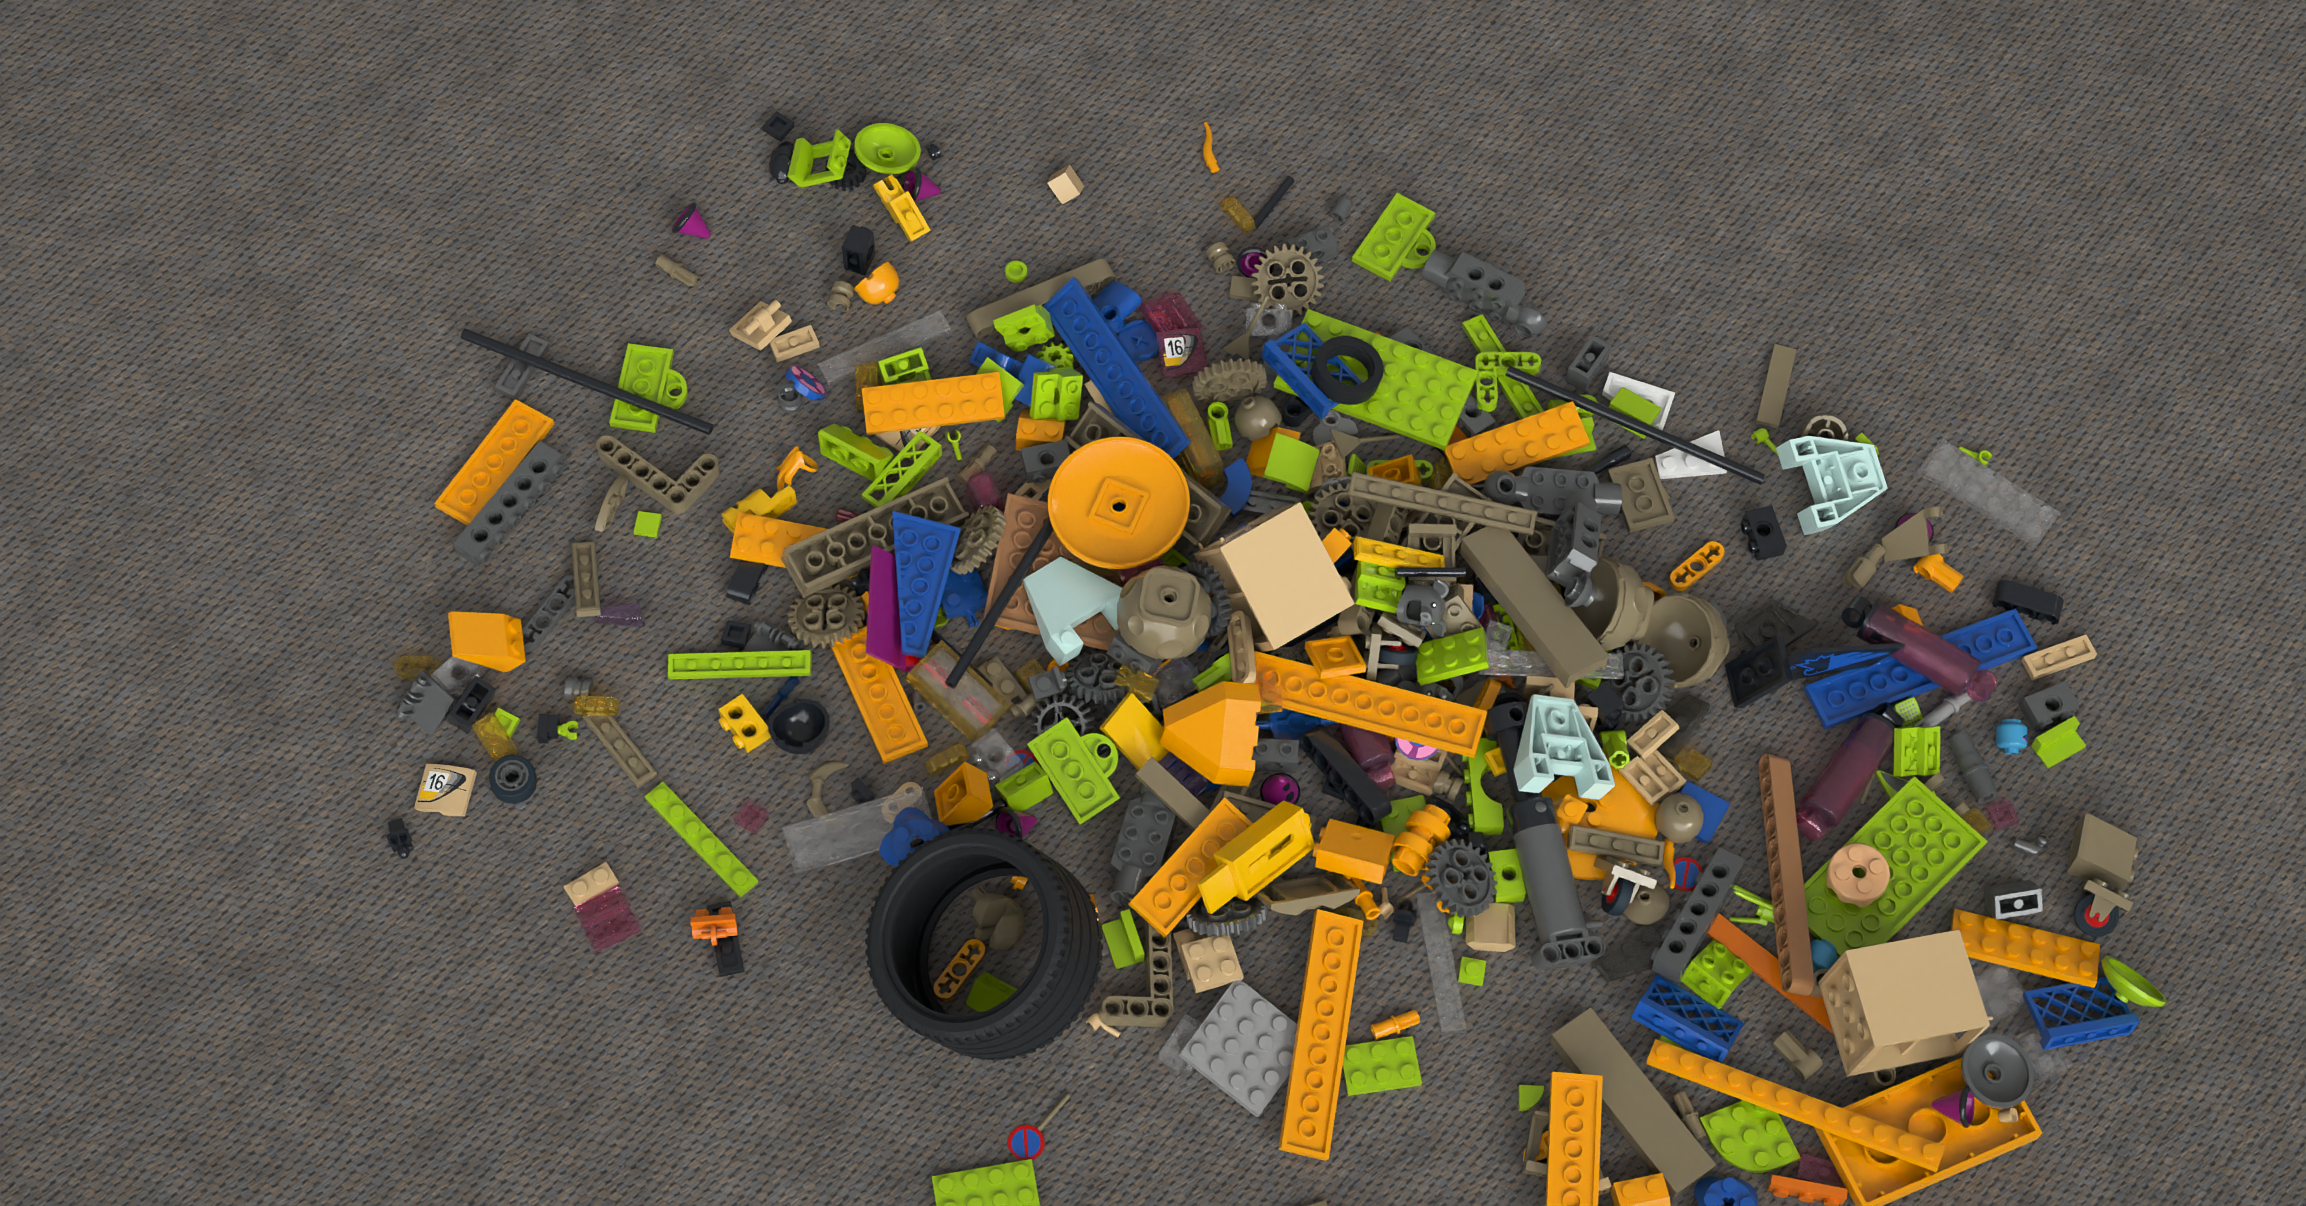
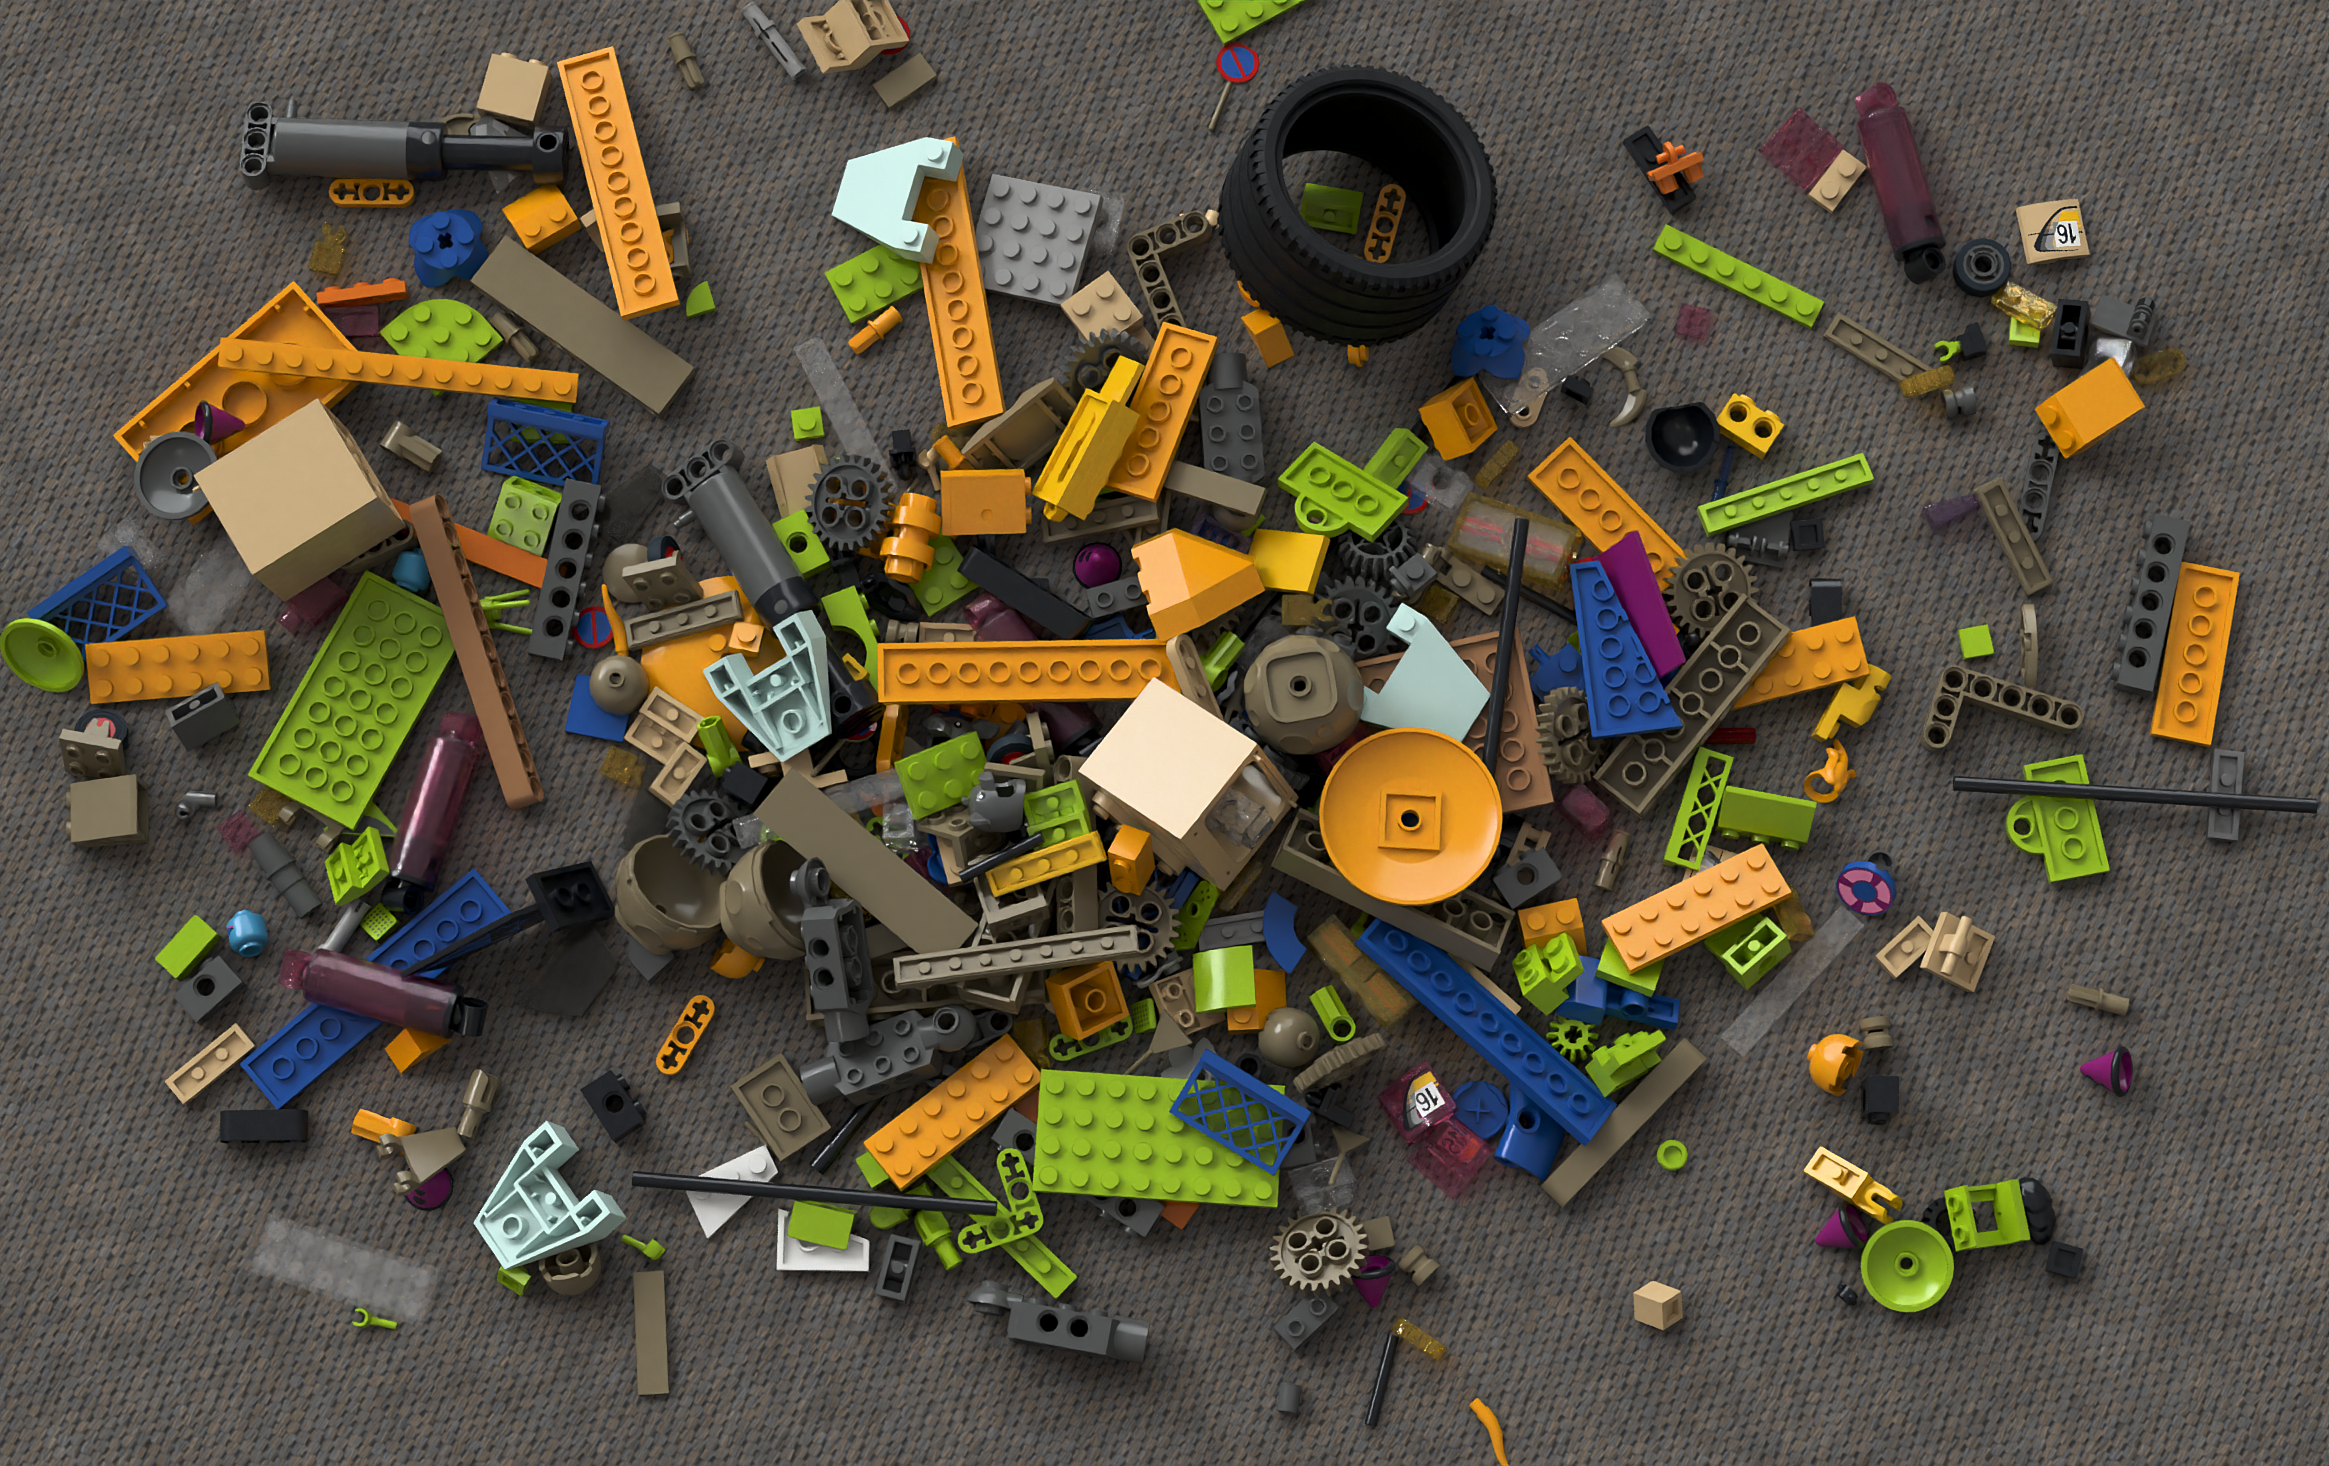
camera: 165 degrees right, 15 degrees up
(399, 838) = (2074, 157): black piece -> none
(544, 858) = (1900, 183): none -> clear pink piece
(955, 444) = (1653, 883): lime hand -> none
(1014, 822) = (1386, 412): magenta hat -> none
(1123, 941) = (1213, 319): lime panel -> none
(1270, 694) = (1144, 640): clear yellow plate -> none
(1335, 657) = (1081, 719): light orange tile -> none
(1353, 348) = (1157, 1115): black tyre -> none
(1356, 1121) = (883, 190): none -> light aqua wedge
(1397, 239) = (1201, 1378): lime plate -> none
(1551, 373) = (937, 1234): none -> lime arm
(1853, 889) = (393, 695): light nougat plate -> none

